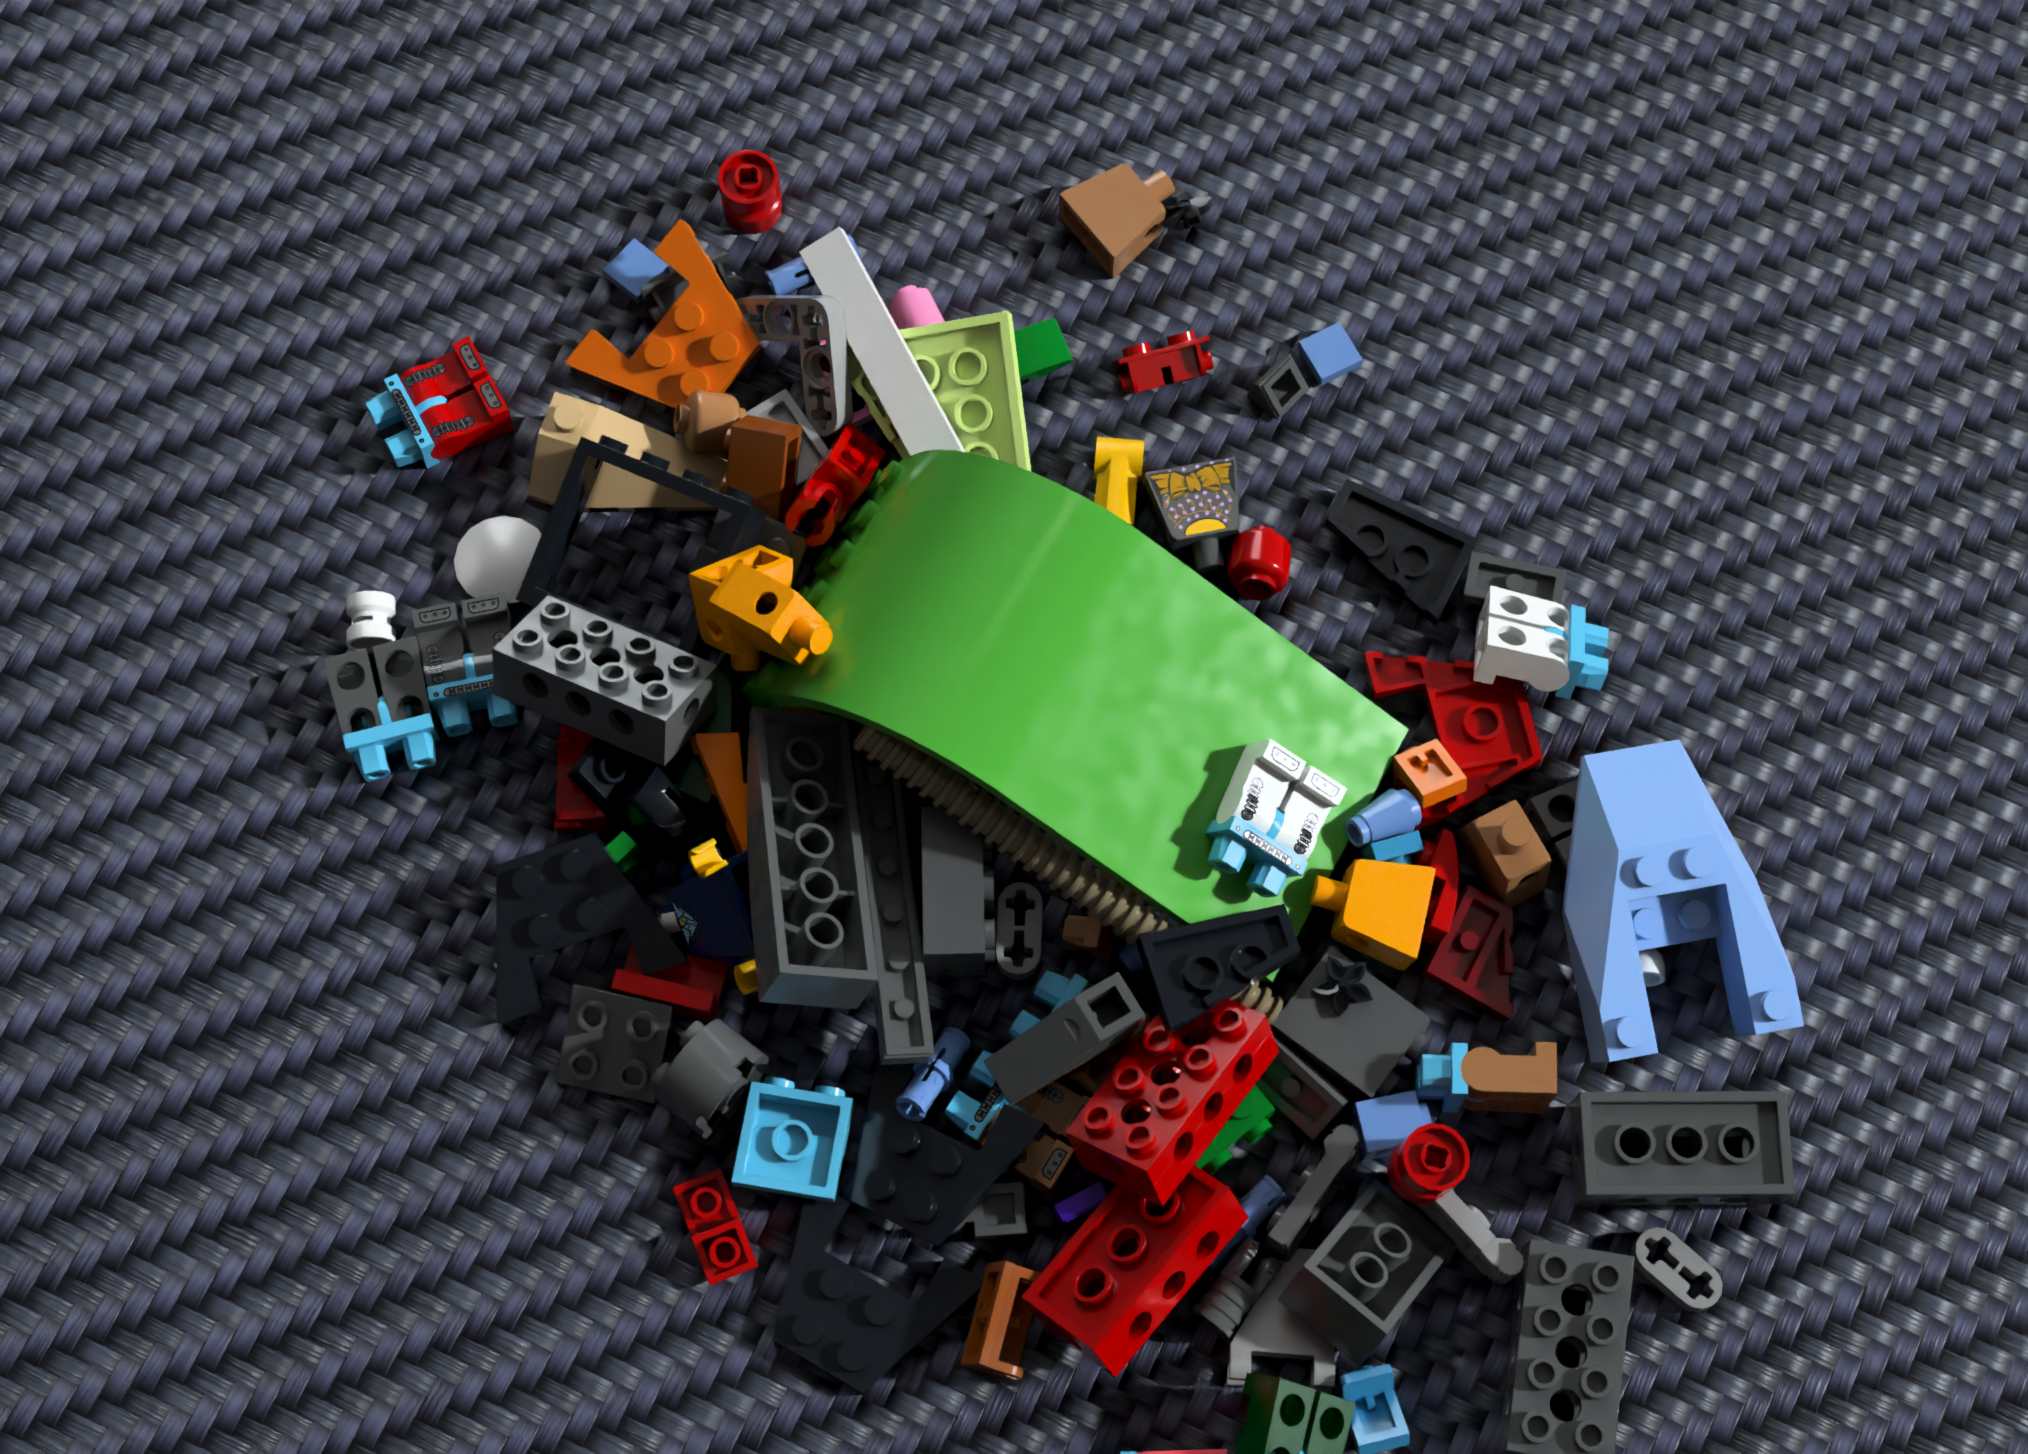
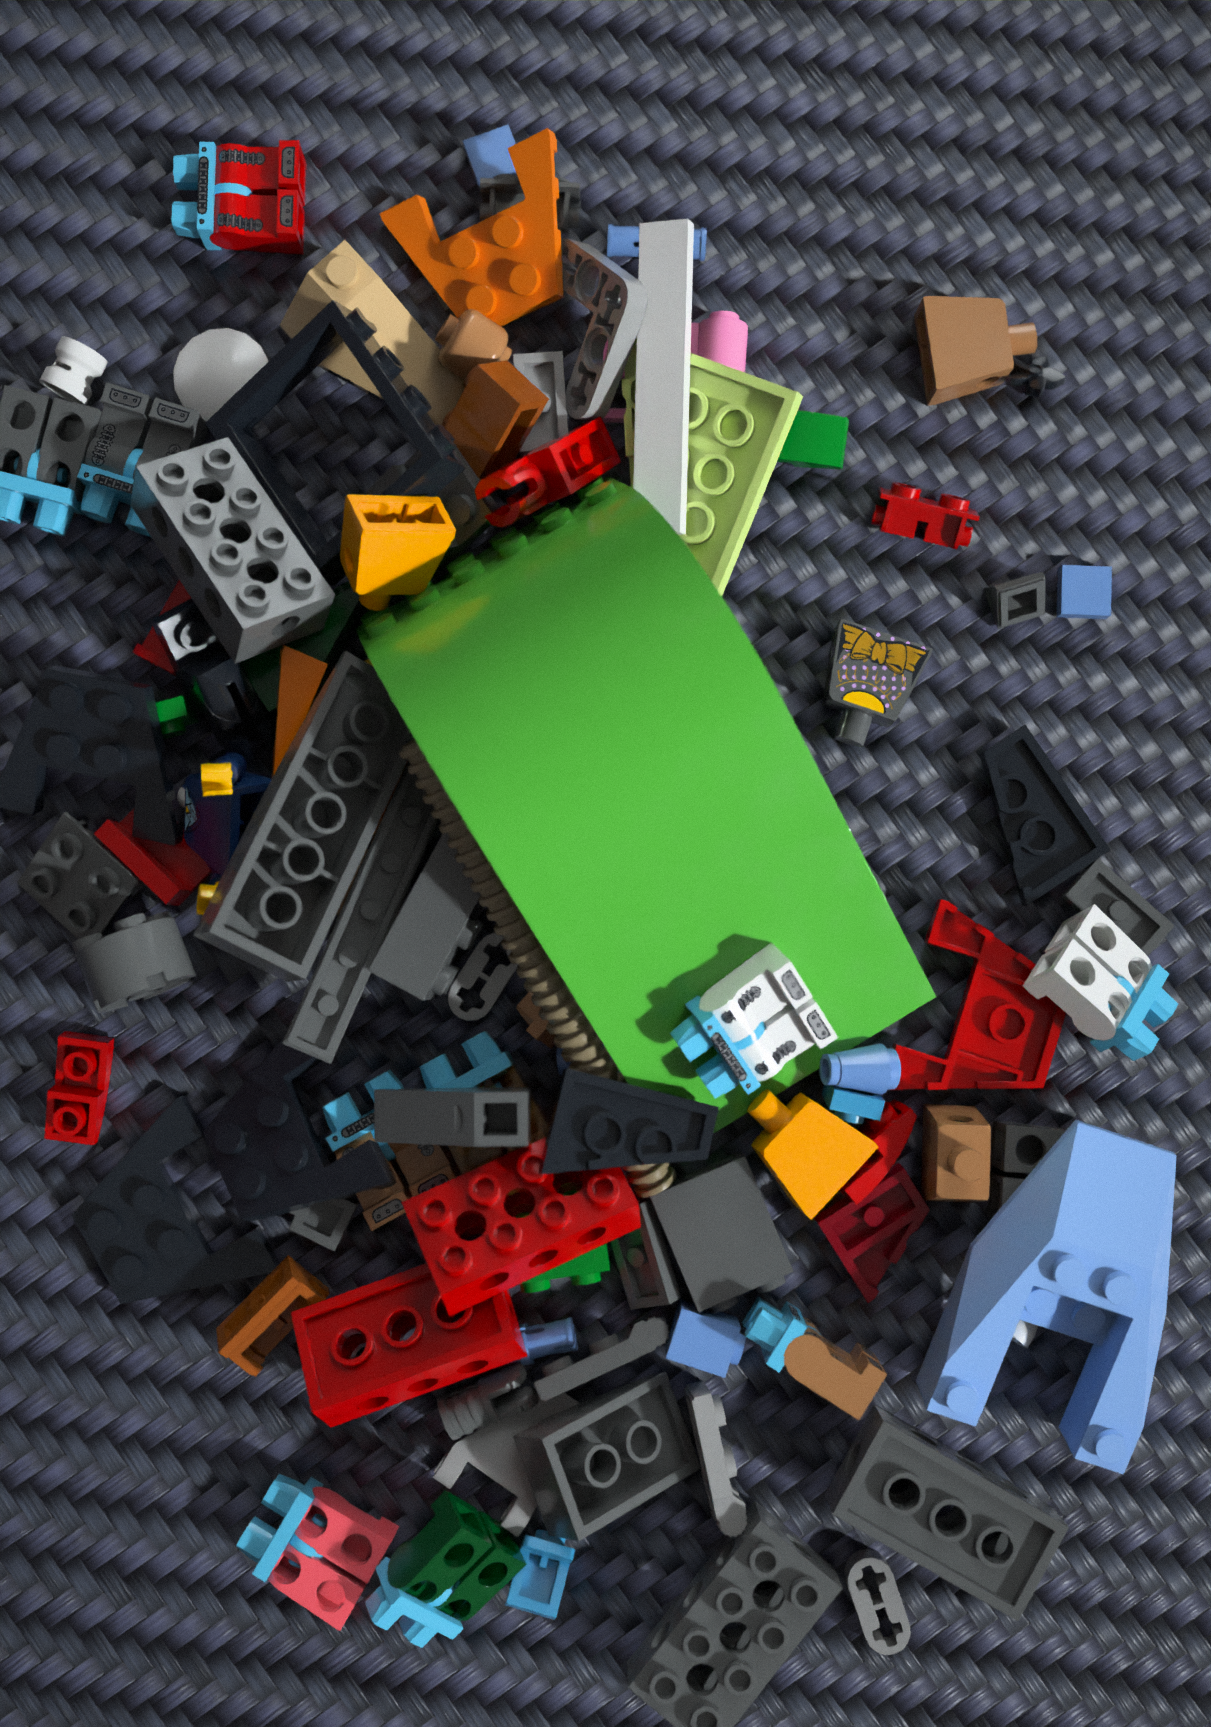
camera: 35 degrees right, 15 degrees up
(750, 191) = (637, 135): red wheel -> none
(788, 632) = (411, 600): light orange torso -> none
(793, 1139) = (179, 1056): medium azure plate -> none
(933, 1076) = (321, 1074): medium blue pin -> none
(1079, 1206) = (393, 1254): dark purple tile -> none
(1117, 473) = (817, 601): yellow piece -> none
(1259, 563) = (896, 759): red head -> none
(1343, 985) = (732, 1200): black plant -> none
(1428, 773) = (928, 1048): orange bracket -> none
(1428, 1163) = (706, 1414): red wheel -> none

